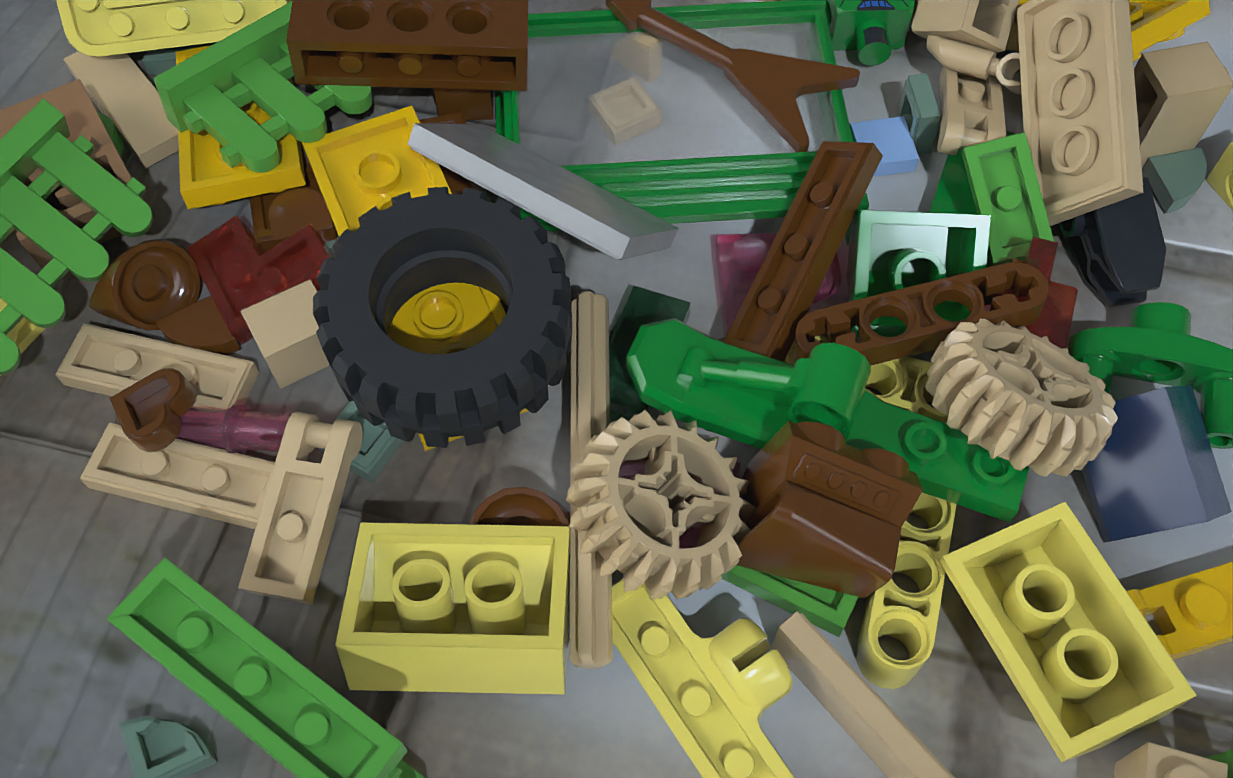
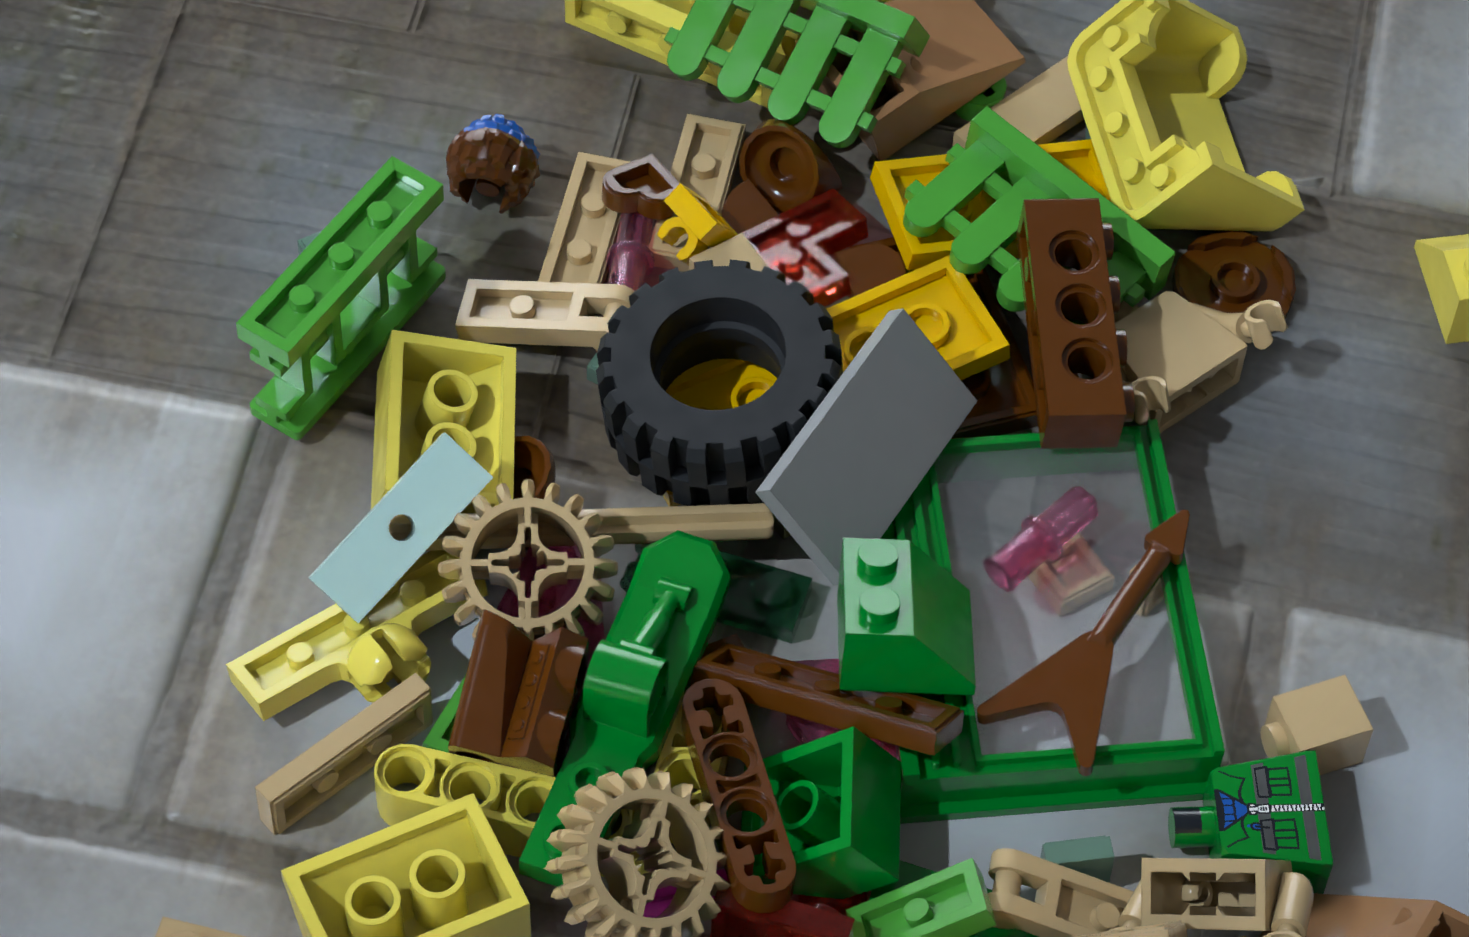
camera: 85 degrees right, 5 degrees down
(78, 555) = (495, 154): none -> reddish brown piece
(218, 348) = (695, 218): none -> yellow tile
(616, 632) = (430, 497): none -> light aqua tile
(629, 89) = (1041, 538): none -> clear pink axle
(738, 186) = (902, 621): none -> green slope
(892, 140) = (1032, 825): light blue tile -> none

